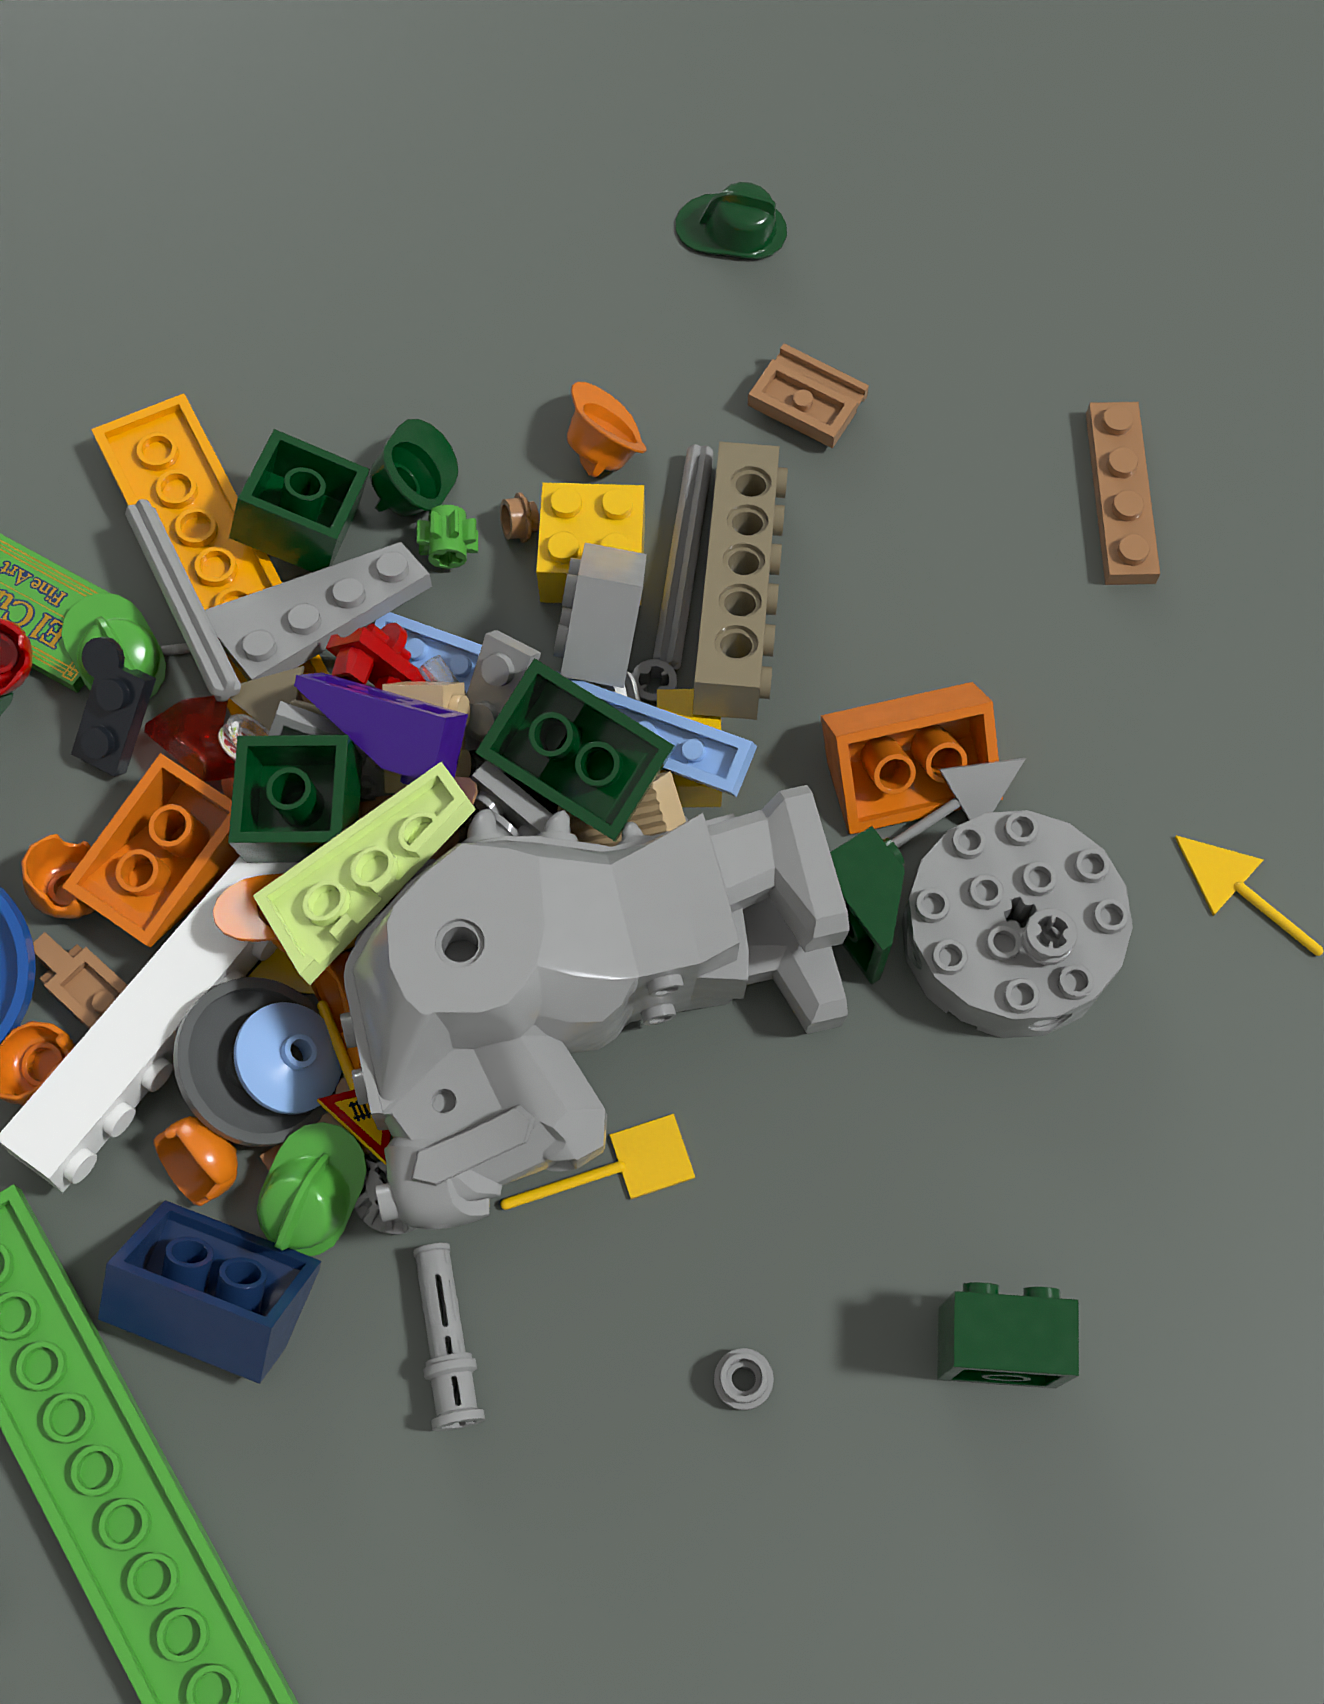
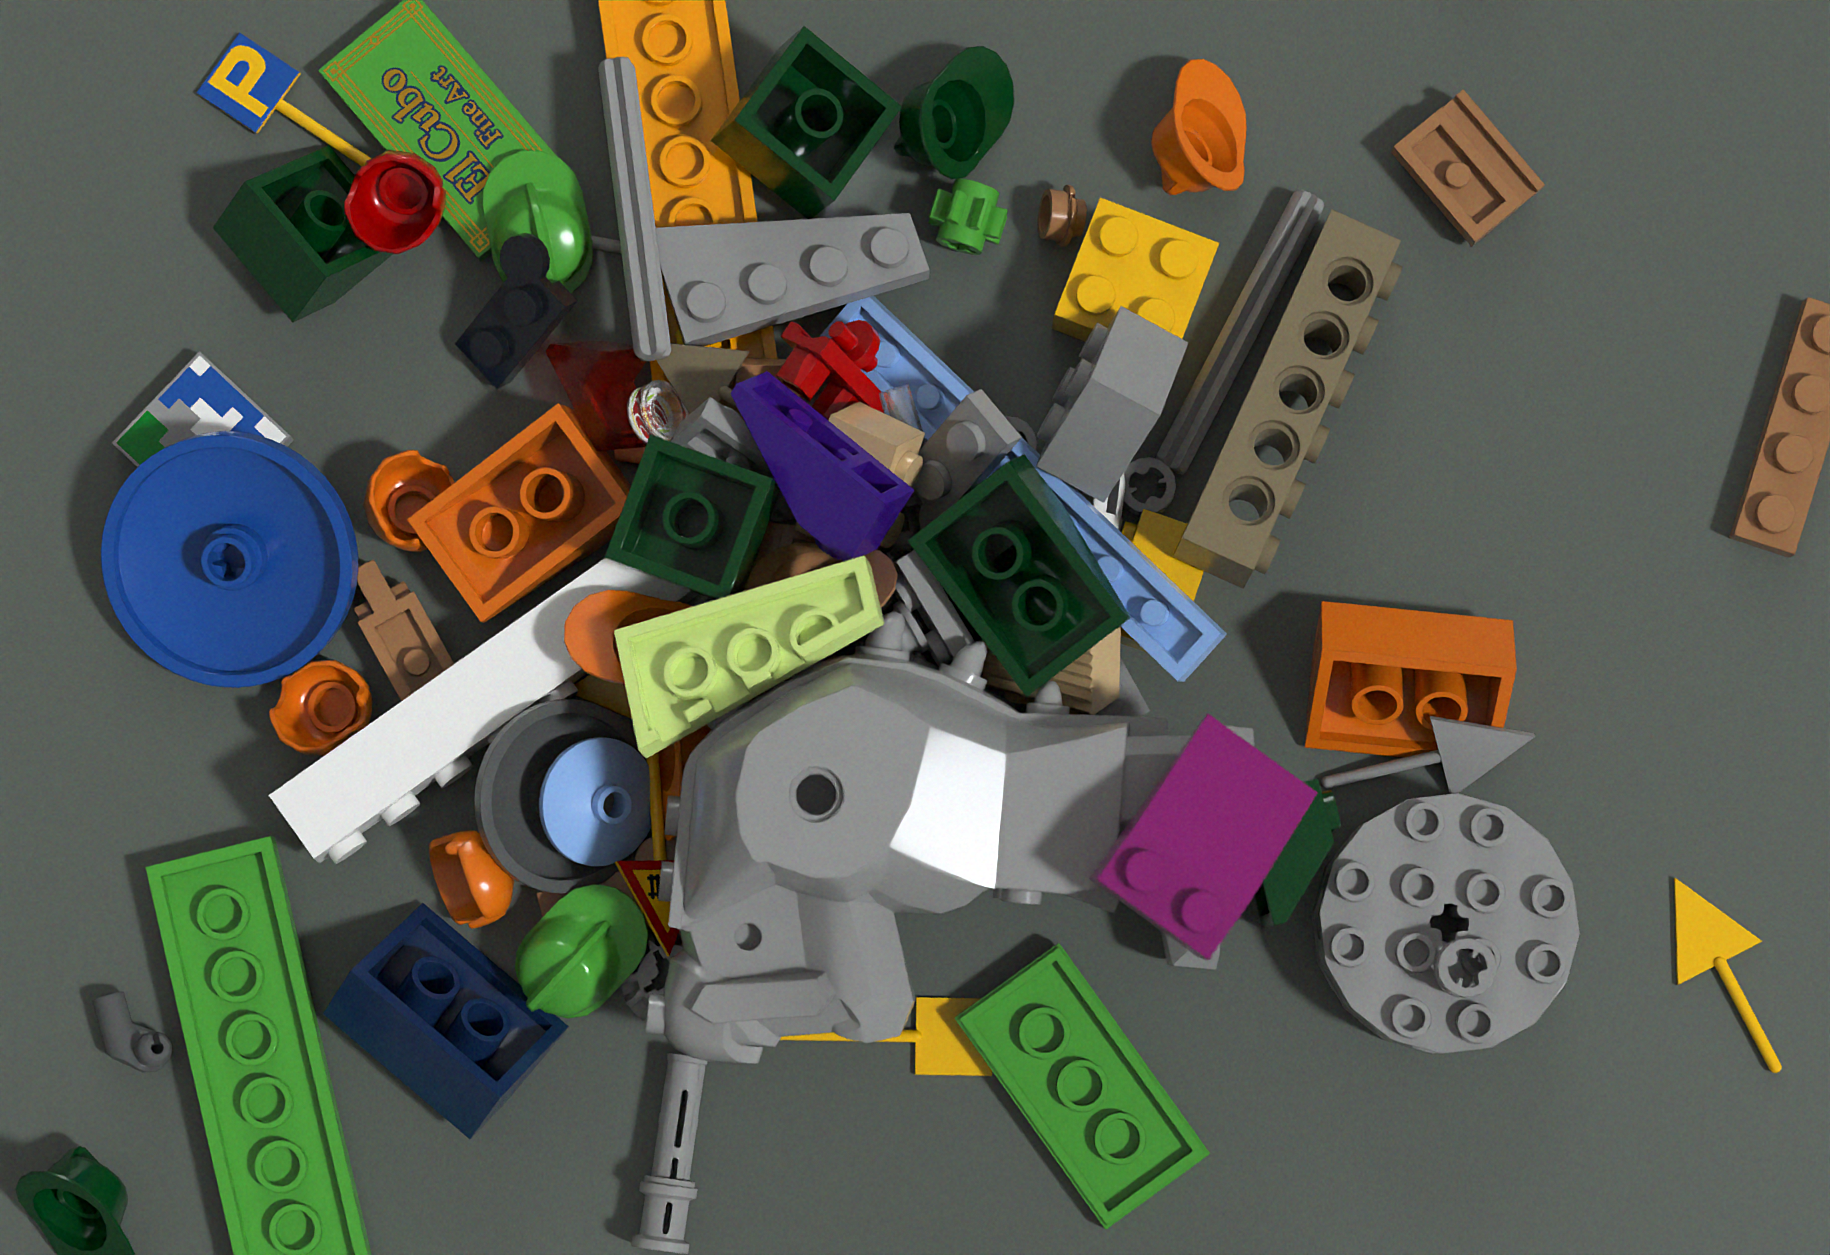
camera: 20 degrees right, 15 degrees up
(773, 1158) = (1082, 1085): none -> bright green tile
(800, 878) = (1205, 838): none -> magenta slope

